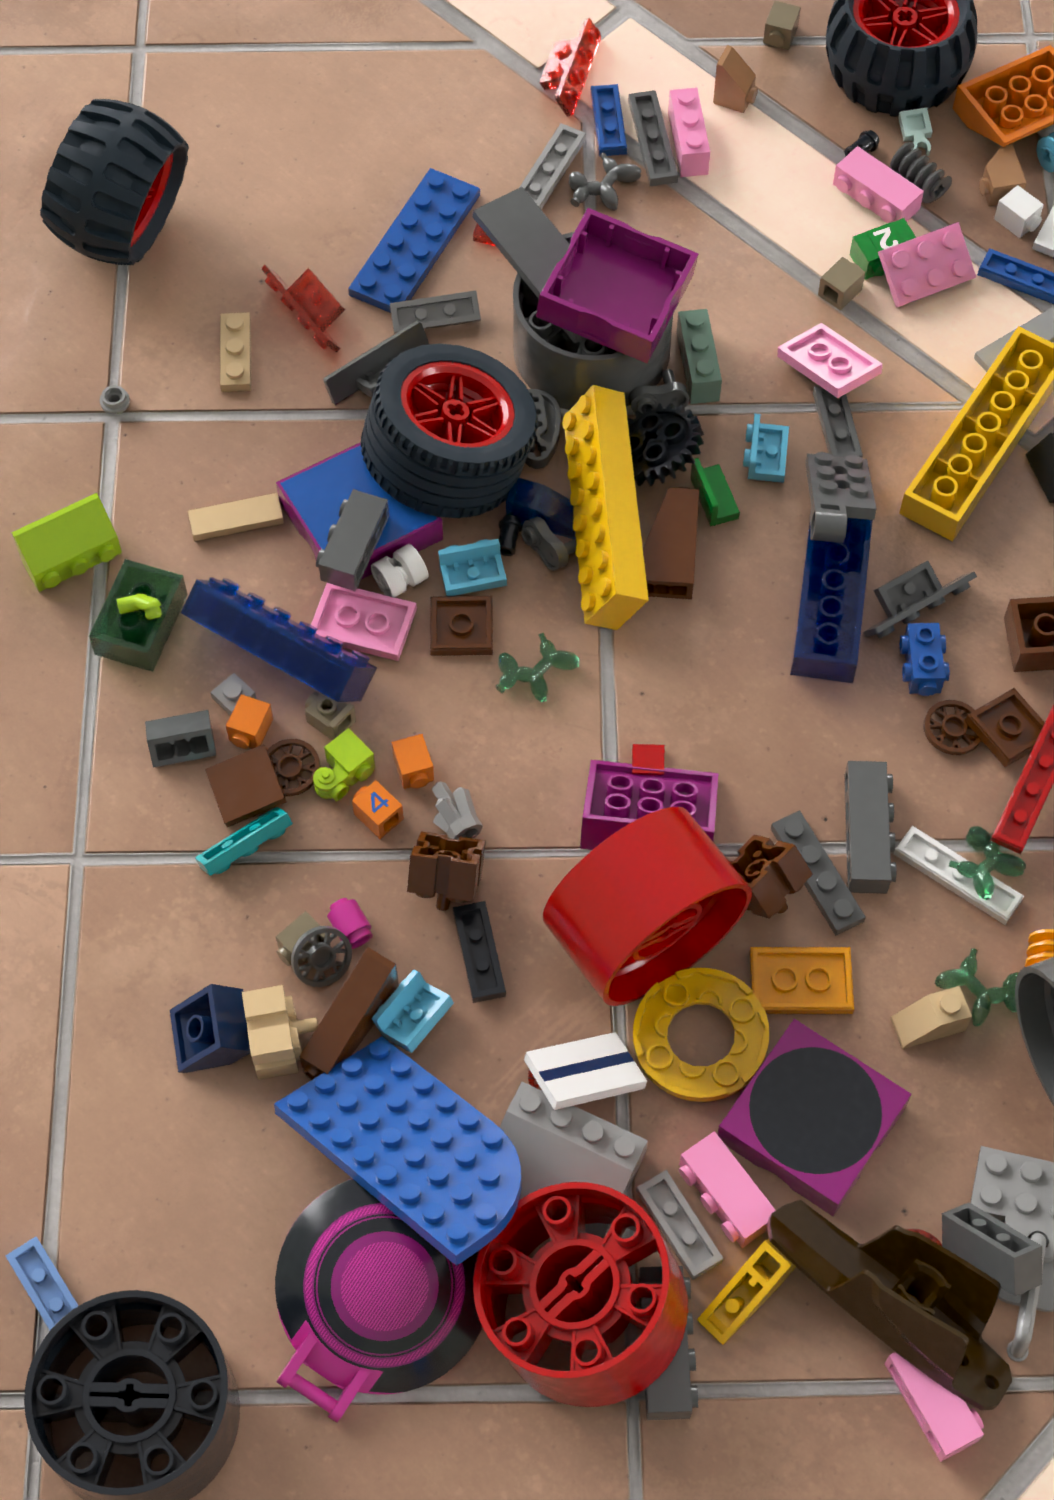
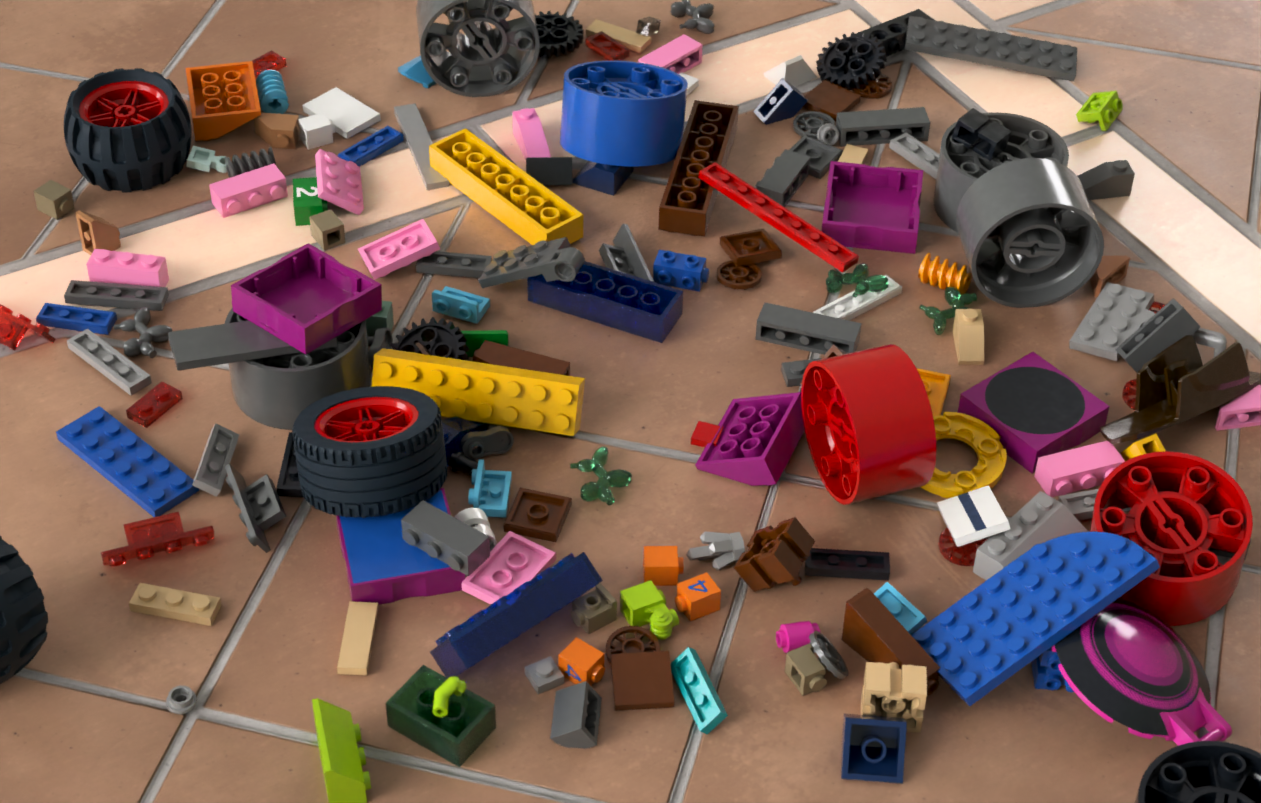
camera: 75 degrees left, 20 degrees down
(867, 141) = (200, 188): black pin -> none

